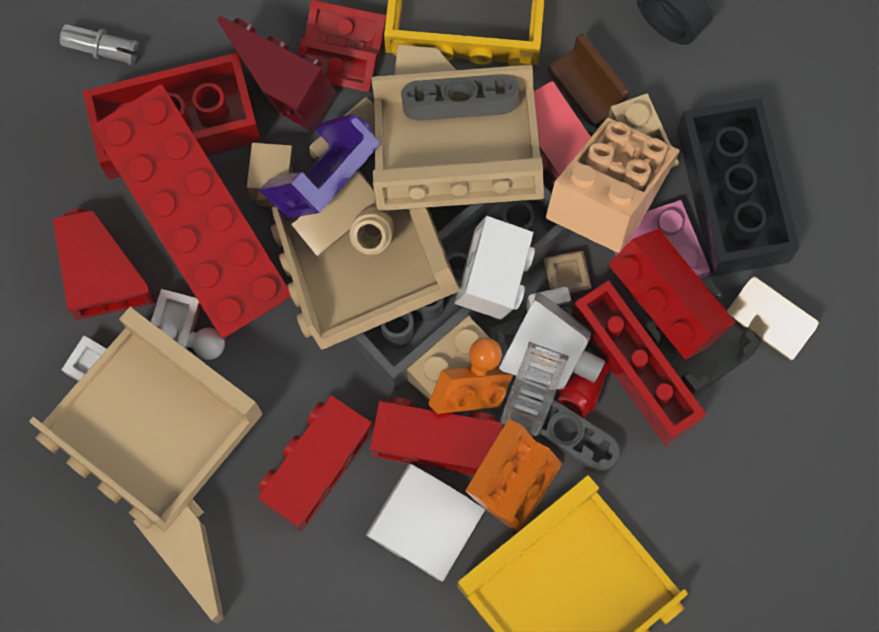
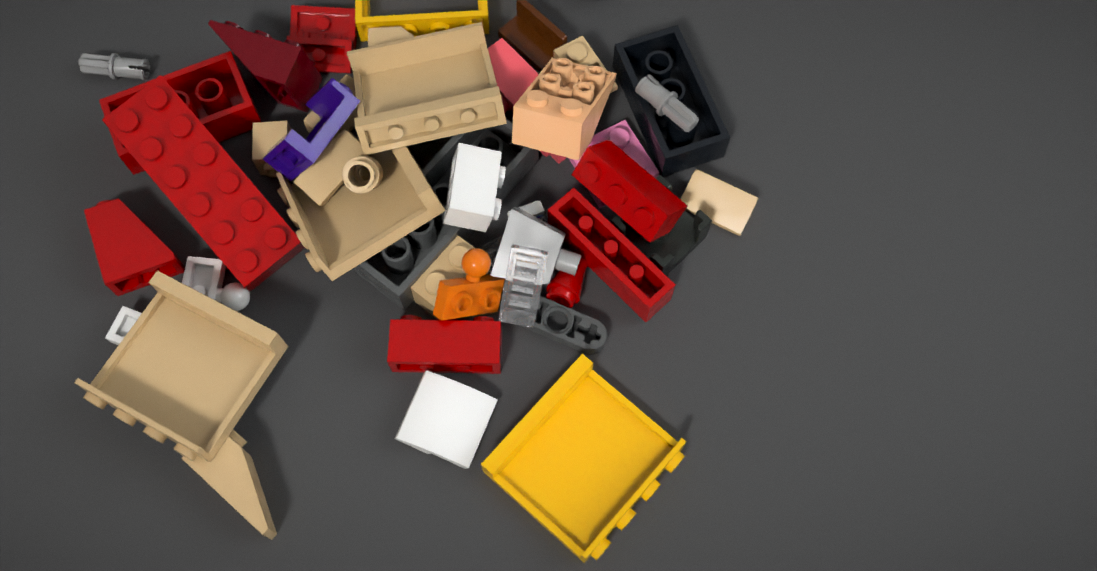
camera: 10 degrees left, 5 degrees down
(314, 462) = (341, 383): red brick -> none
(488, 105) = (443, 54): dark grey beam -> none
(514, 476) = (517, 365): orange slope -> none
(568, 271) = (540, 189): tan tile -> none
(732, 197) = (666, 103): none -> light grey axle

